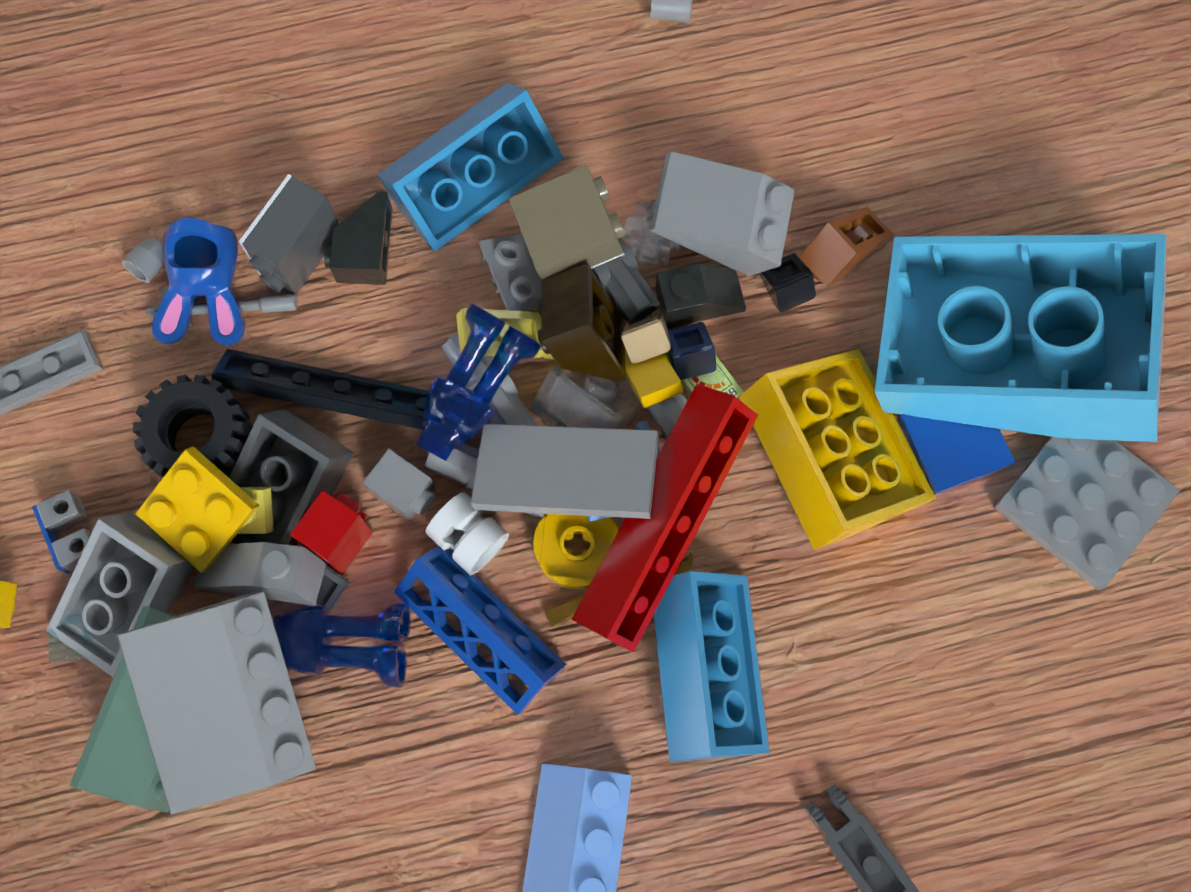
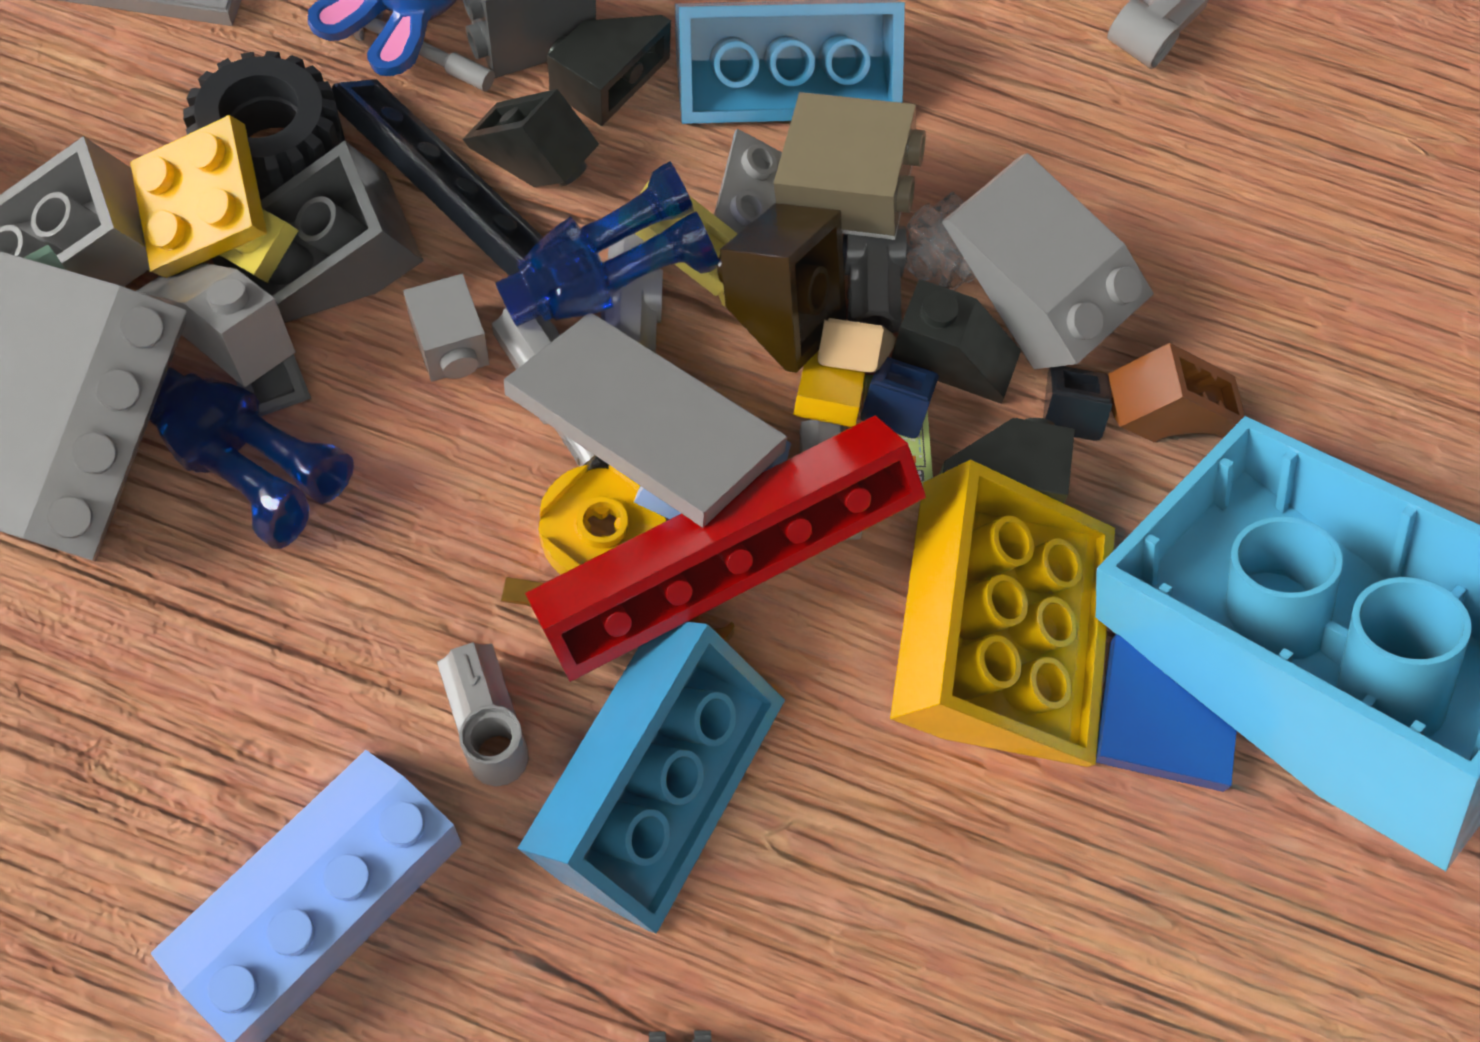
camera: 25 degrees right, 10 degrees down
(54, 519) = (47, 132): flat silver piece -> none
(333, 530) = (329, 318): red brick -> none
(356, 326) = (534, 139): none -> pearl dark grey slope
(466, 533) = (480, 426): white wheel -> none
(482, 620) = (424, 530): blue fence -> none
(585, 401) = (732, 362): clear slope -> none
(590, 696) = (483, 711): none -> light grey piece
(785, 343) = (1027, 452): none -> pearl dark grey slope
(1087, 504) = (1299, 904): light grey plate -> none

